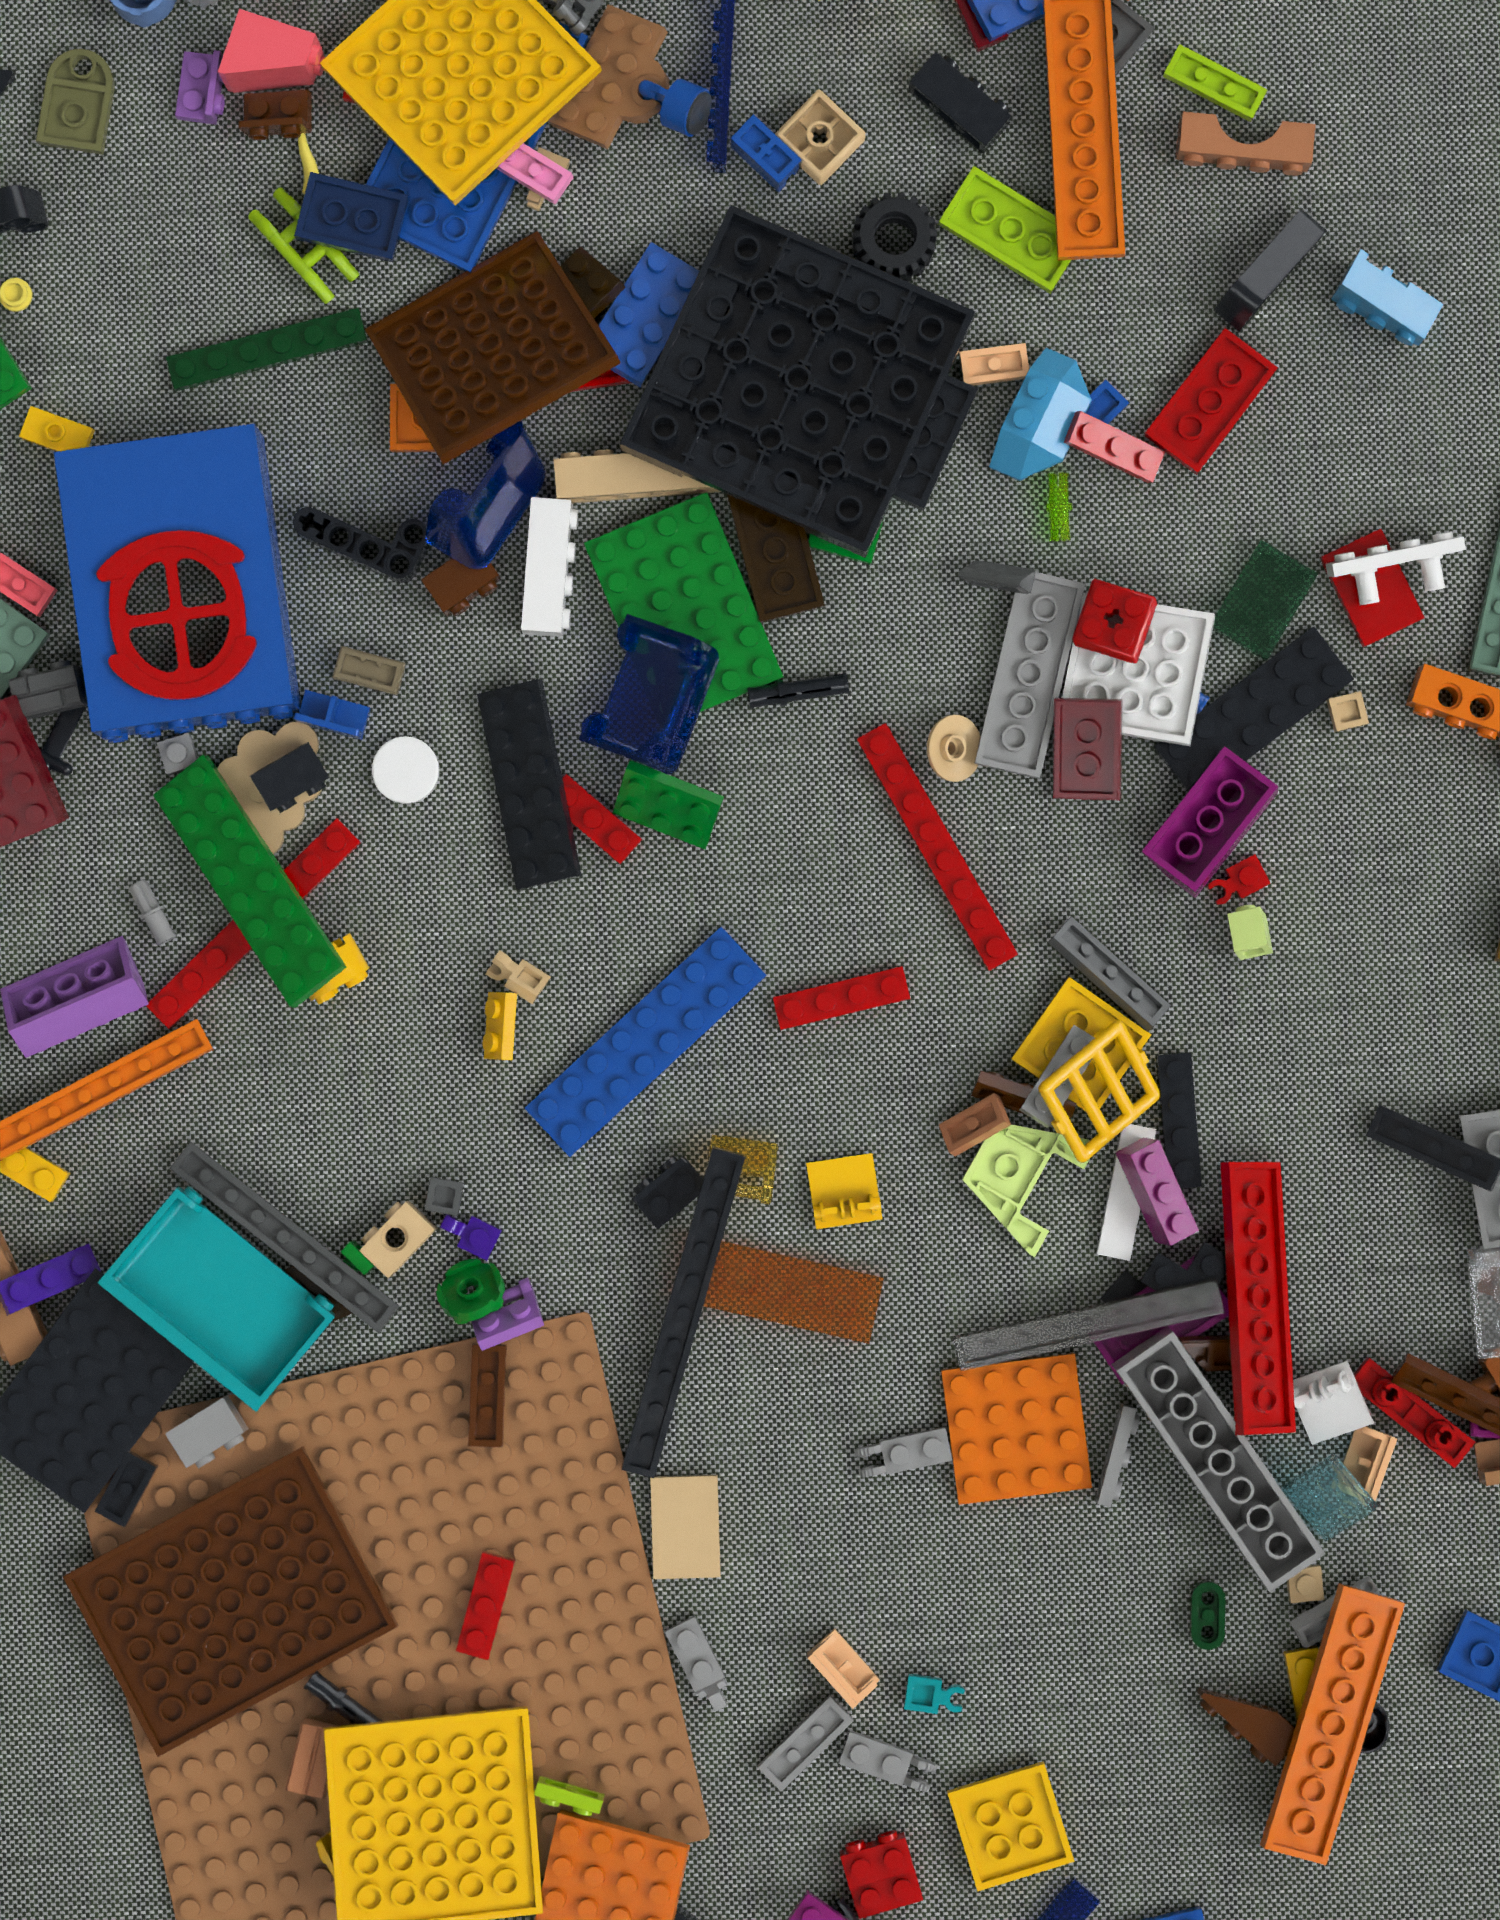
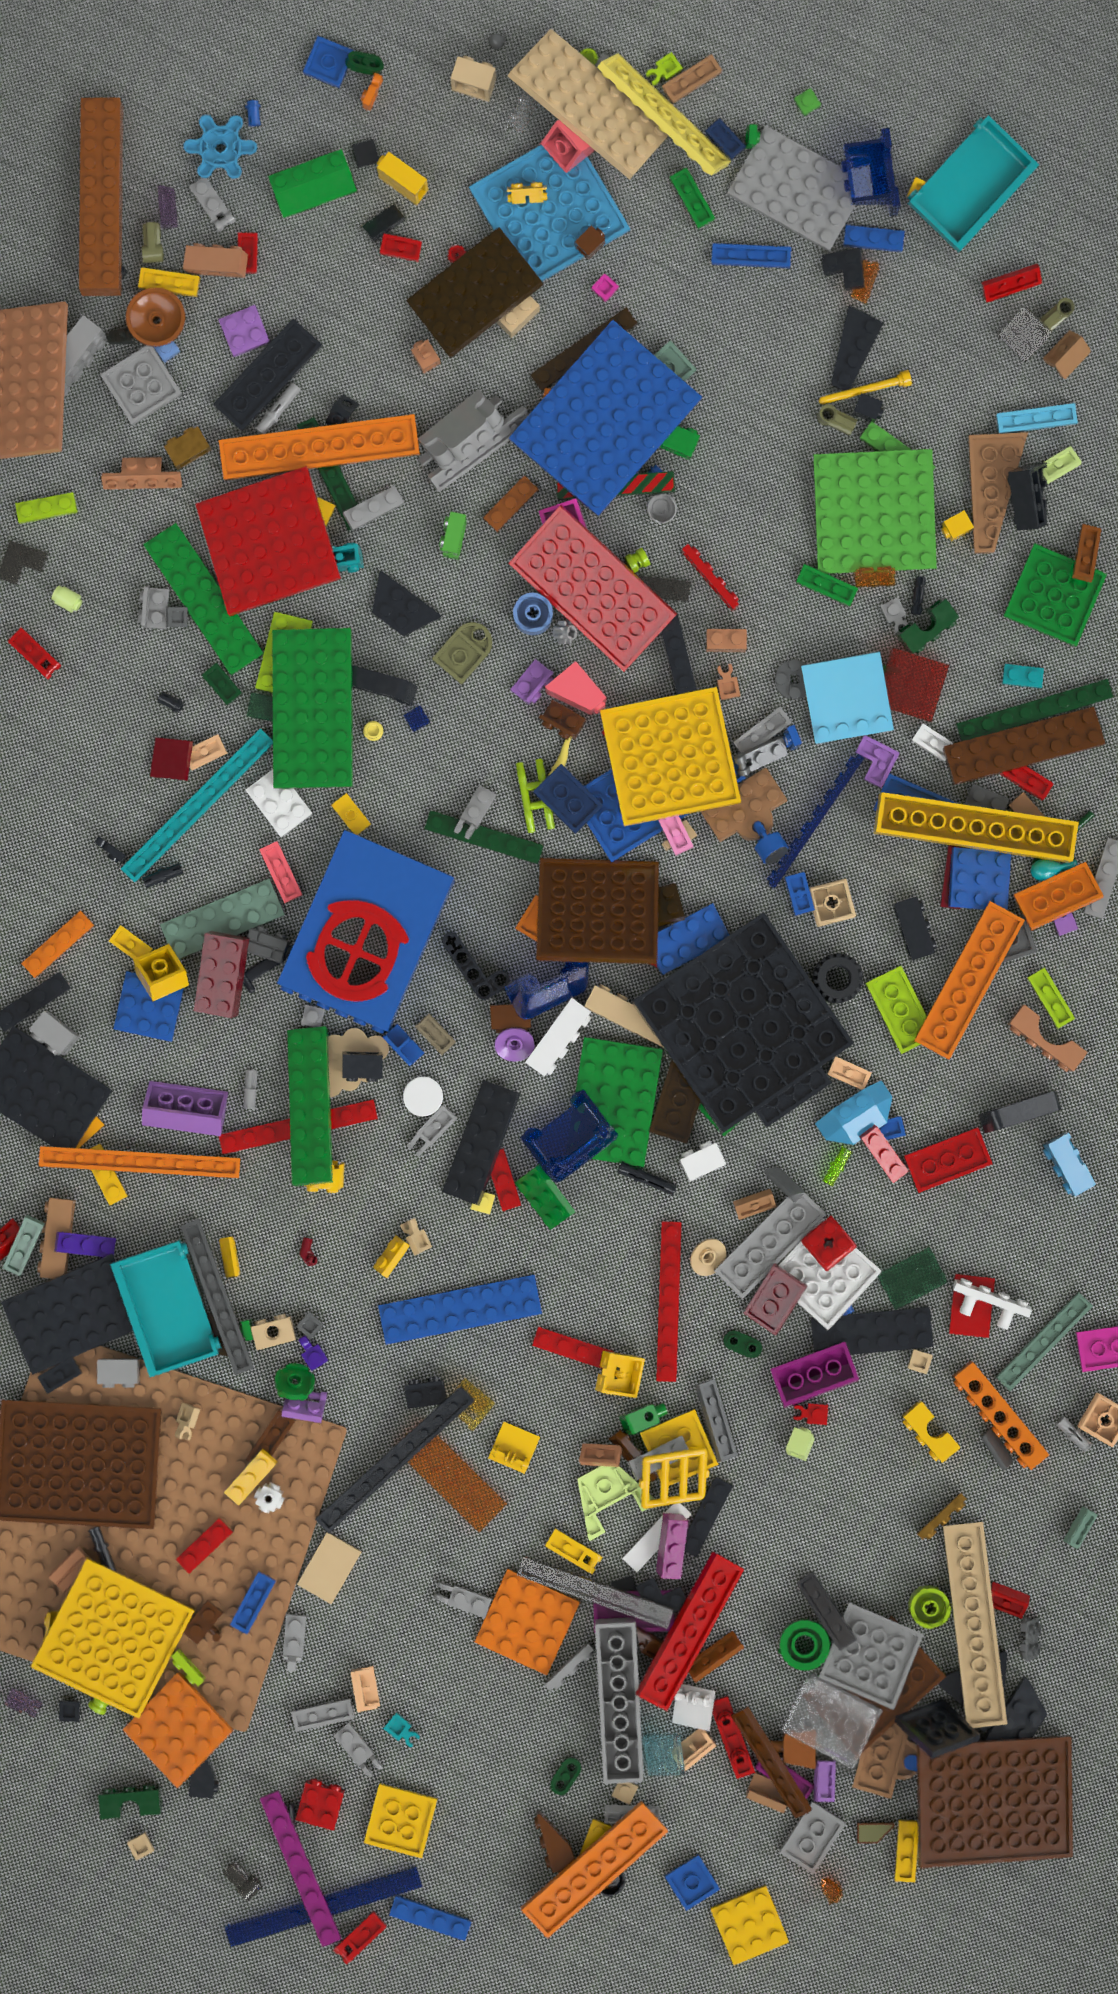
camera: 25 degrees right, 0 degrees up
(67, 240) = (416, 719): none -> clear blue plate
(231, 317) = (476, 810): none -> light grey hinge
(269, 1169) = (229, 1257): none -> yellow slope
(348, 1439) = (187, 1419): none -> tan plate
(377, 1097) = (306, 1253): none -> dark red arm
(449, 807) = (433, 1128): none -> light grey hinge
(491, 1465) = (250, 1477): none -> yellow plate
(496, 626) = (514, 1050): none -> medium lavender dish
(536, 1465) = (272, 1490): none -> white brick
(553, 1717) = (203, 1623): none -> reddish brown plate
(590, 869) = (486, 1203): none -> light yellow plate
(605, 1644) = (253, 1602): none -> blue plate
(861, 615) = (701, 1161): none -> white brick
(944, 988) = (627, 1376): none -> yellow piece
(974, 632) = (754, 1204): none -> medium nougat plate
(994, 1043) = (634, 1420): none -> green torso
(1019, 1286) = (573, 1550): none -> yellow plate
(1080, 843) = (742, 1344): none -> dark green plate
(1316, 1310) = (715, 1656): none -> dark orange plate
(1396, 796) = (917, 1419): none -> yellow arch
(1460, 1221) = (815, 1656): none -> green piece

